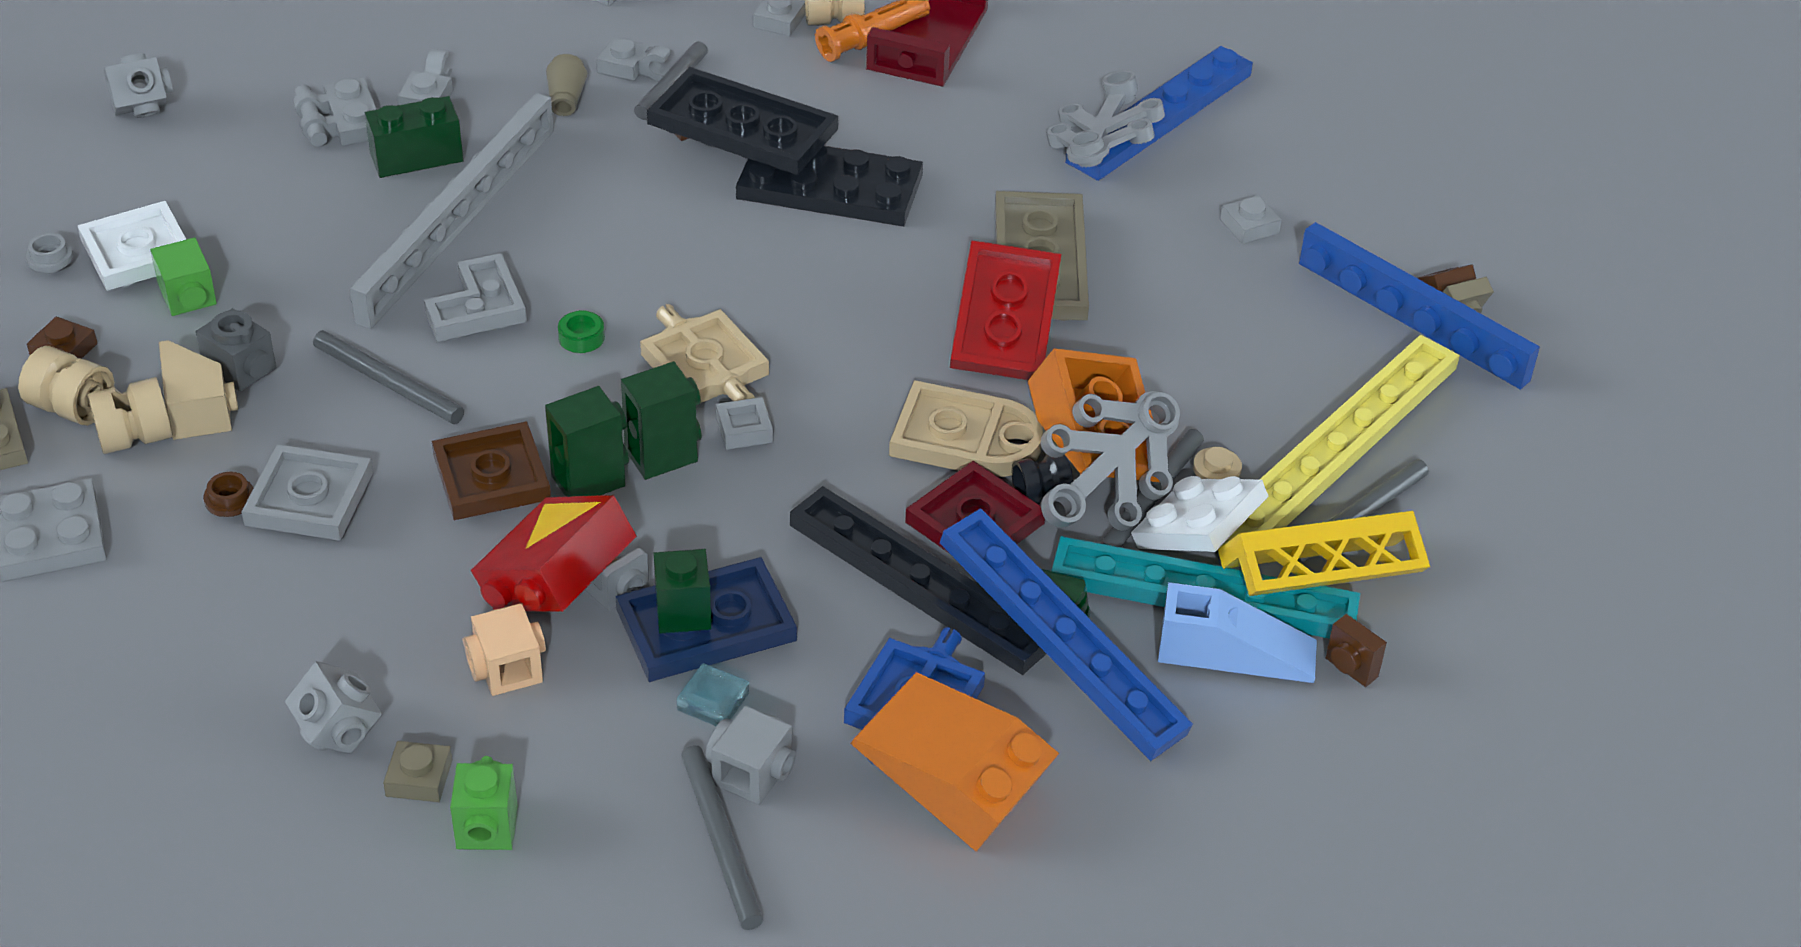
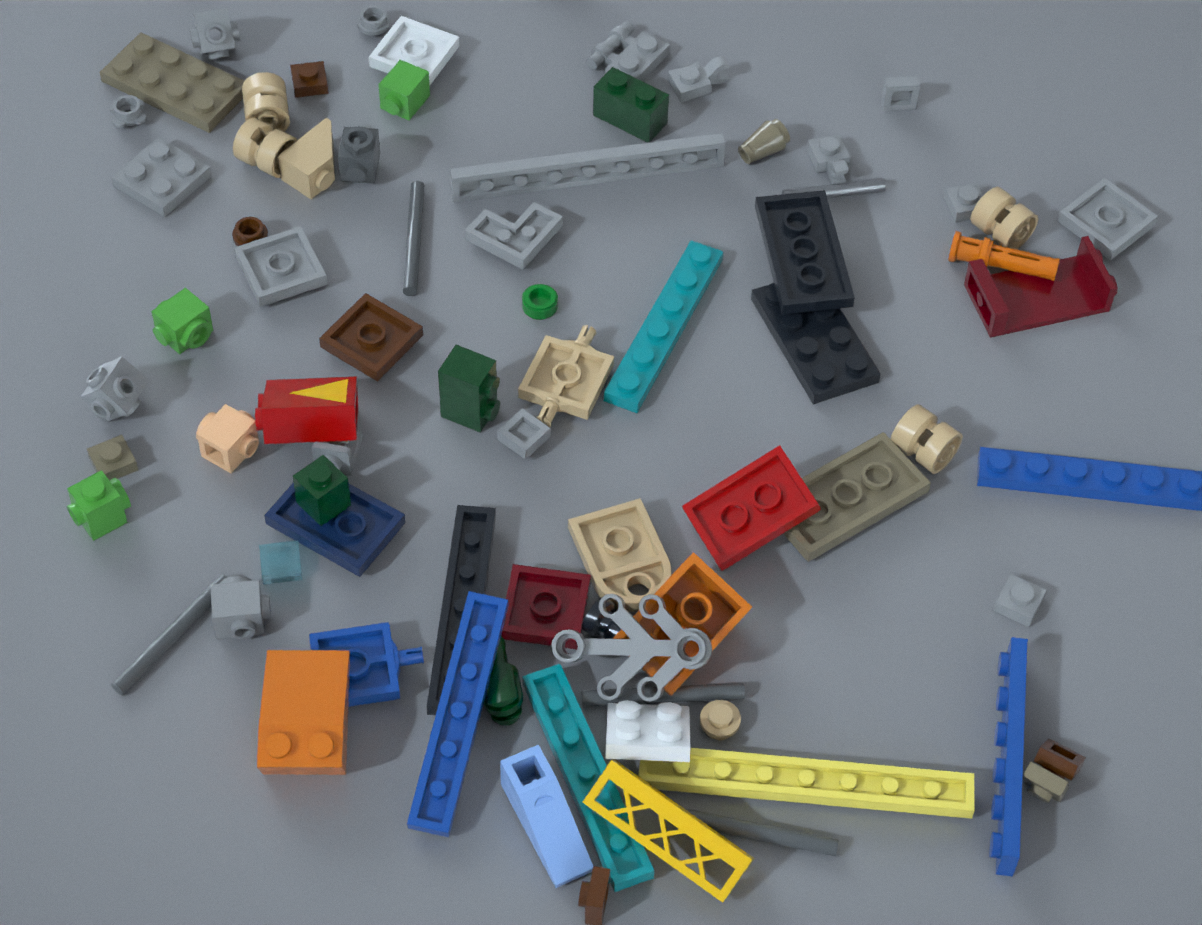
camera: 55 degrees right, 10 degrees up
(295, 607) = (182, 321): none -> bright green brick
(587, 443) = (413, 366): dark green brick -> none
(710, 264) = (663, 327): none -> teal plate
(1018, 163) = (923, 436): none -> tan wheel
(1093, 144) = (980, 456): light grey plant -> none

